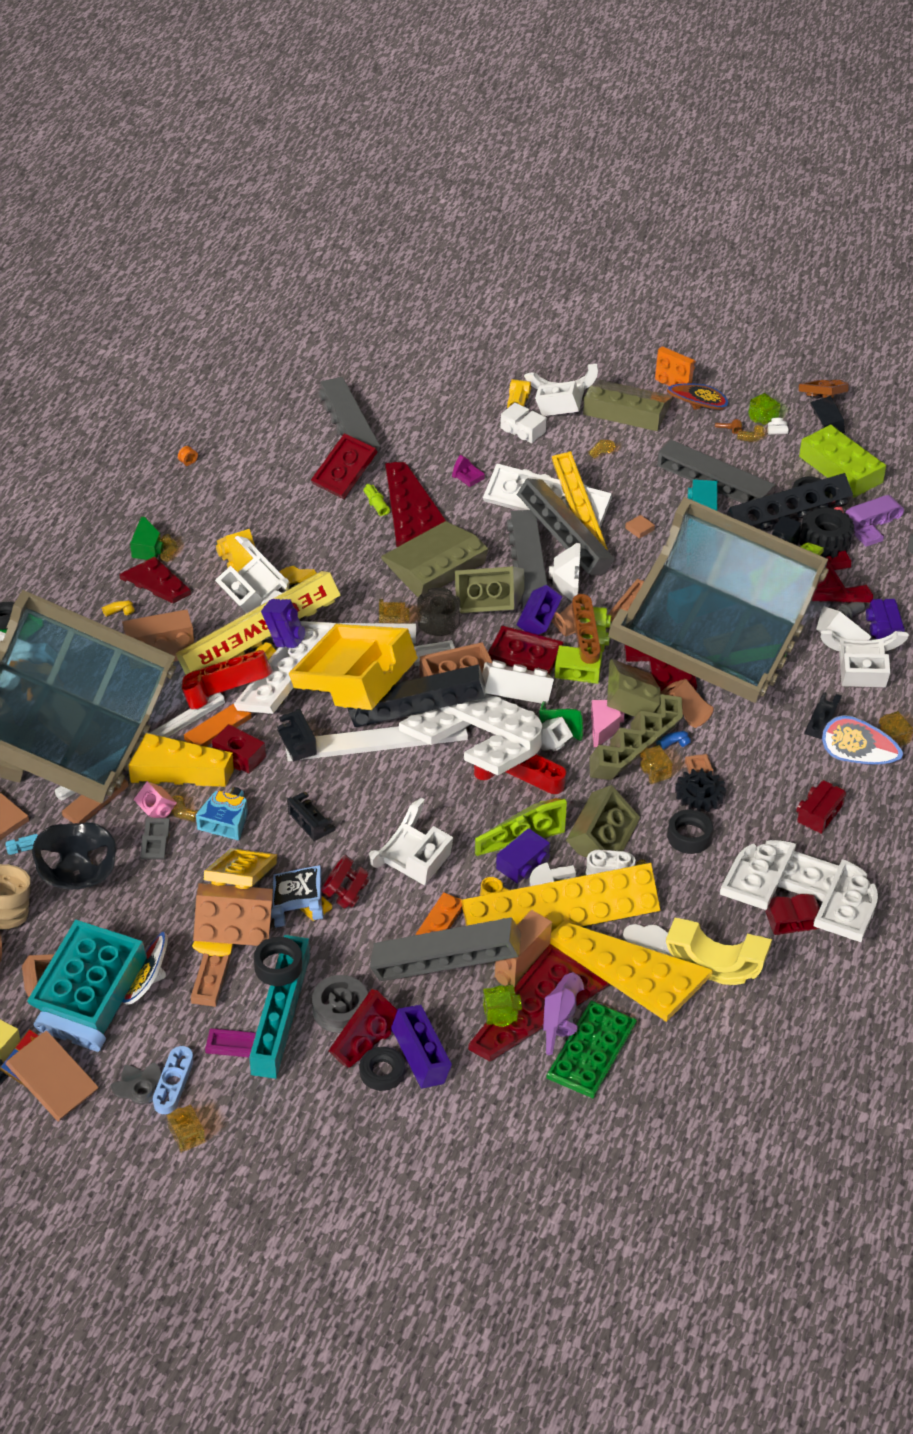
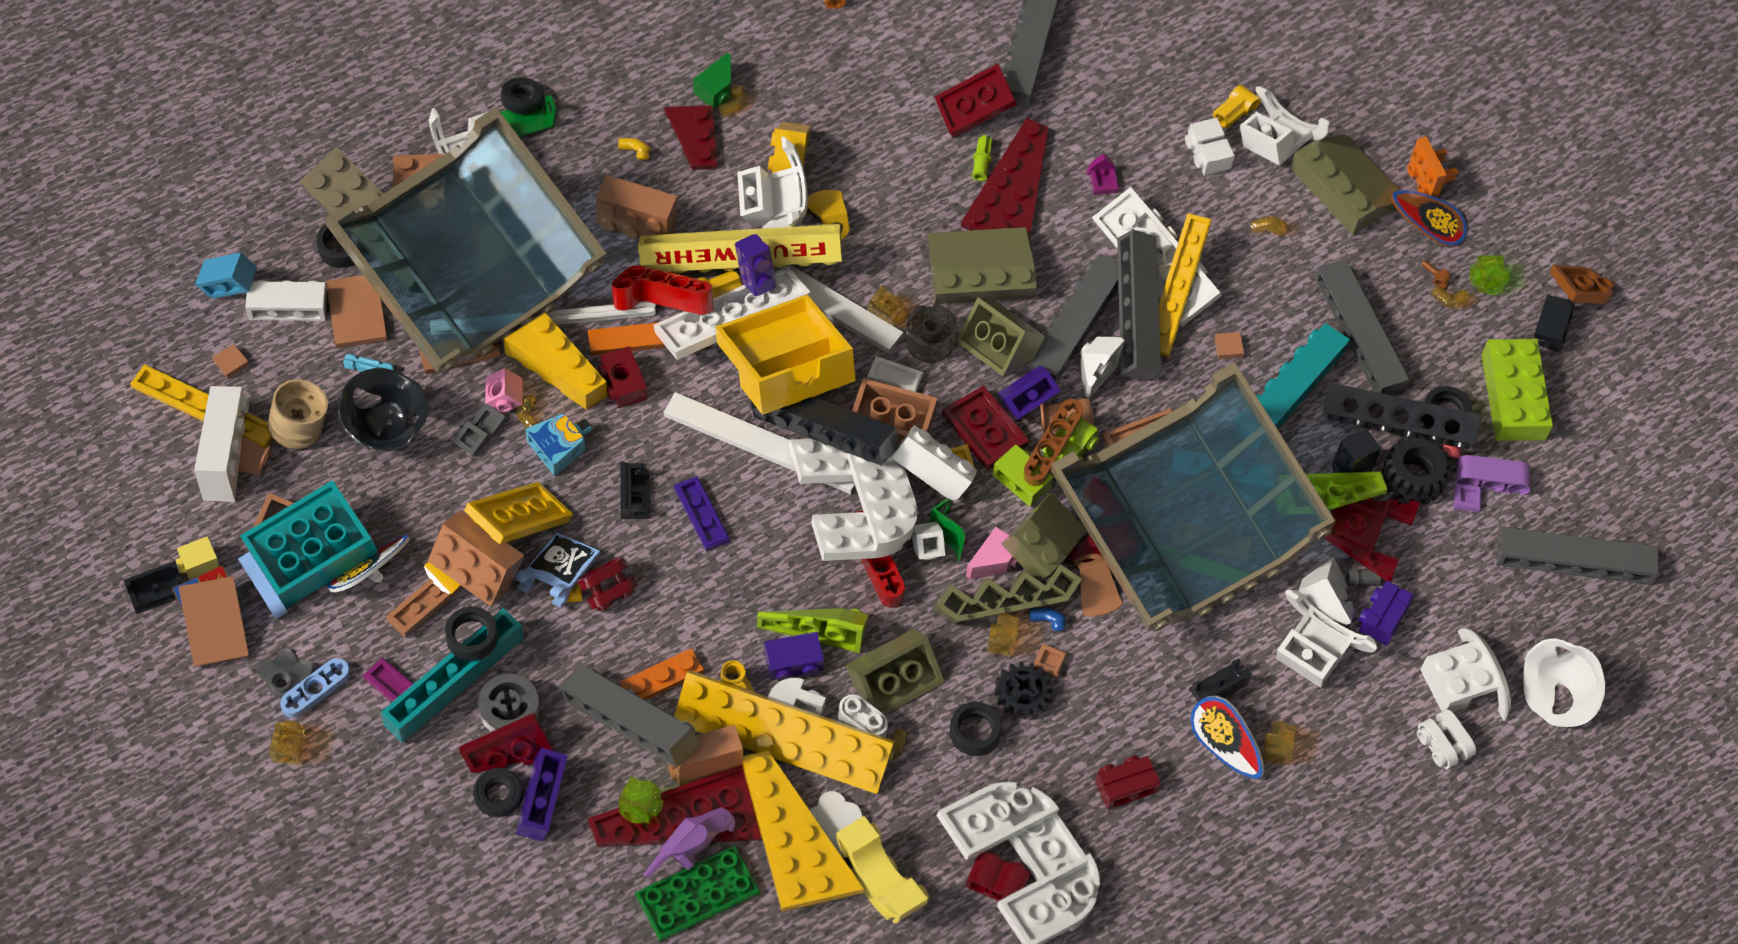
camera: 30 degrees right, 15 degrees up
(297, 736) = (684, 396): black hinge -> none
(372, 805) = (701, 513): none -> dark purple tile
(413, 851) = (696, 586): white piece -> none
(777, 426) = (1487, 304): white plate -> none

